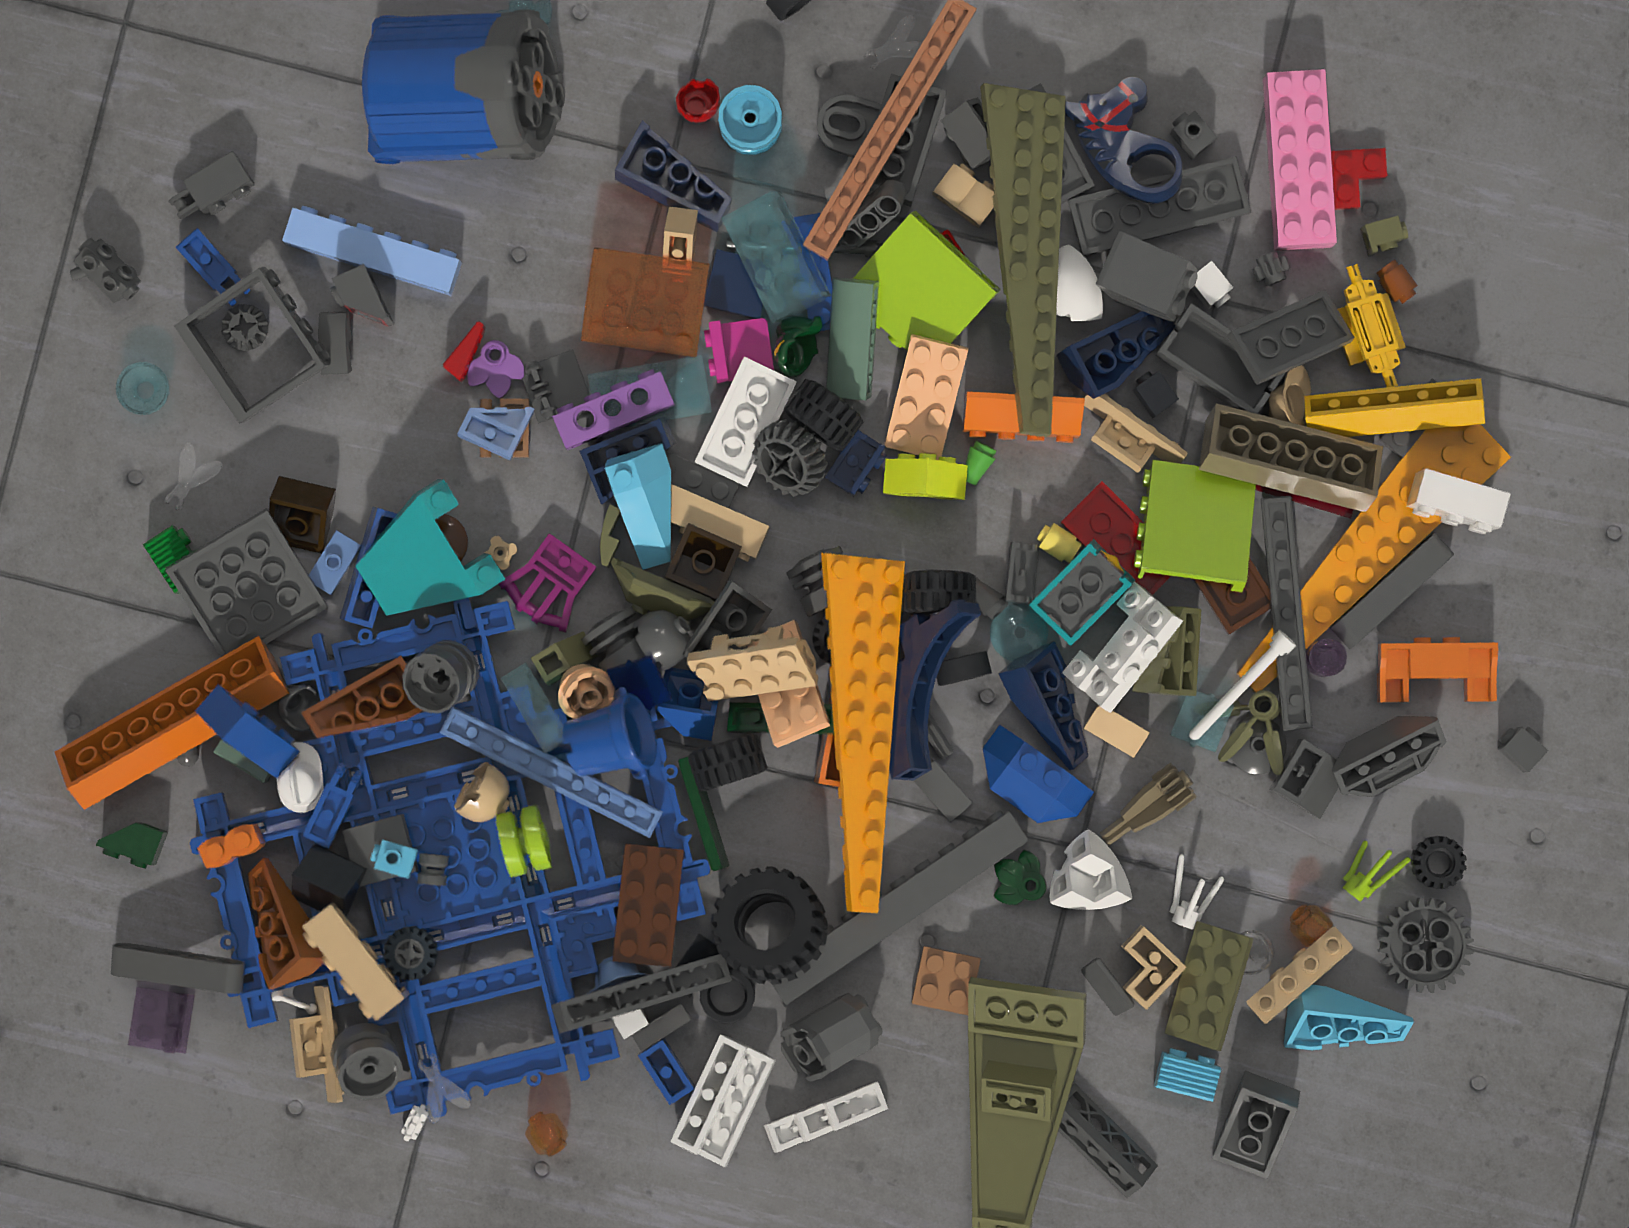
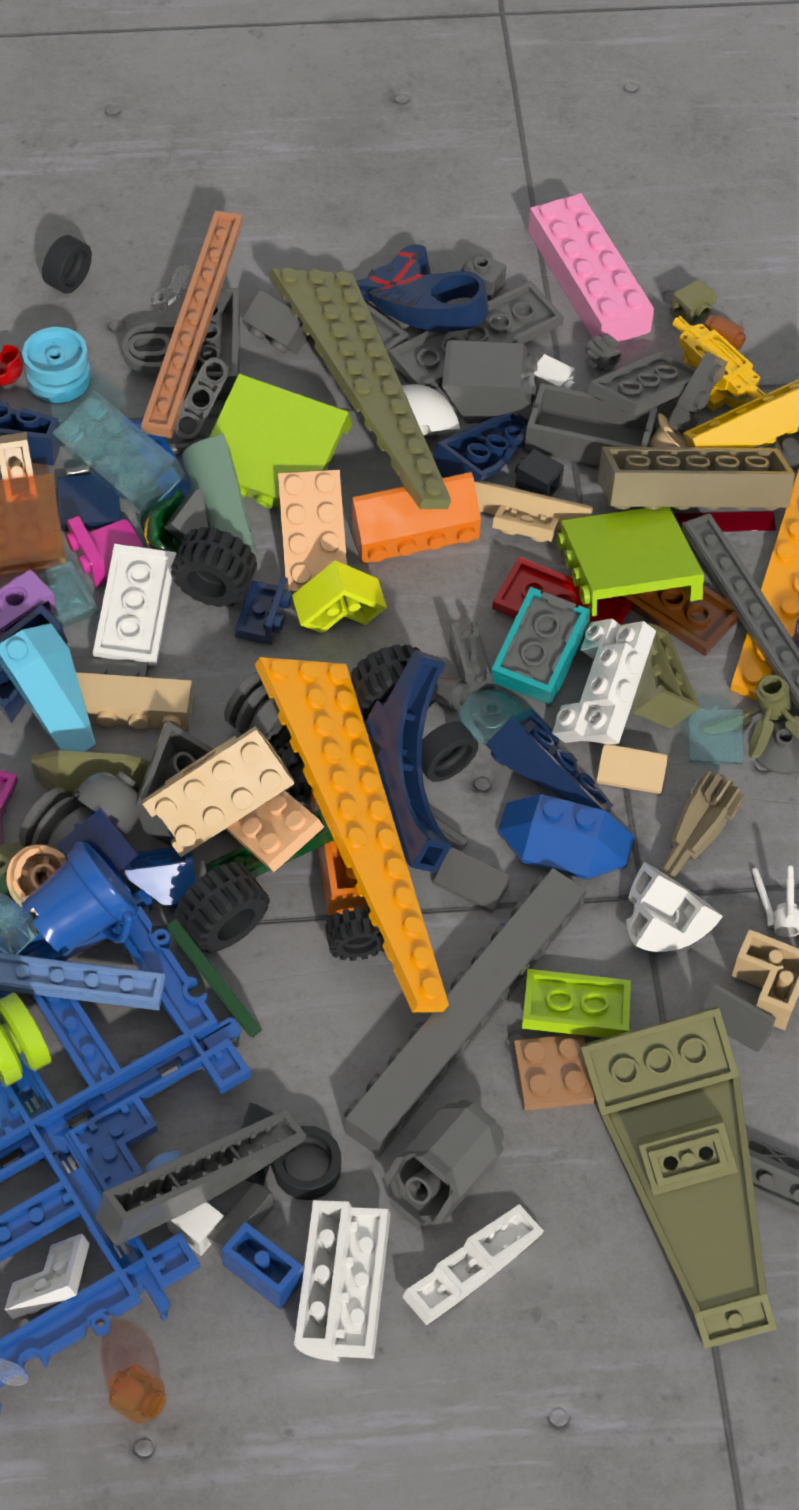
camera: 15 degrees left, 30 degrees down
(511, 1032) = (55, 1283): none -> white plate
(608, 544) = (23, 745): olive slope -> none
(648, 905) = (180, 1079): reddish brown plate -> none
(703, 562) = (130, 725): dark brown slope -> none
(743, 900) = (344, 1087): black tyre -> none
(793, 475) = (181, 632): dark grey gear -> none
(817, 354) = (188, 516): none -> dark grey slope
(822, 816) = (353, 935): none -> black tyre
(965, 194) = (290, 371): tan brick -> none
(978, 461) = (389, 573): bright green cone -> none
(984, 934) = (576, 1004): none -> lime plate
(1015, 878) = (588, 941): dark green plate -> none
(1058, 542) = (495, 620): light yellow brick -> none
(1279, 646) = (763, 629): white piece -> none
(1333, 361) = (697, 392): none -> dark grey hinge
(1352, 166) = (647, 266): red plate -> none

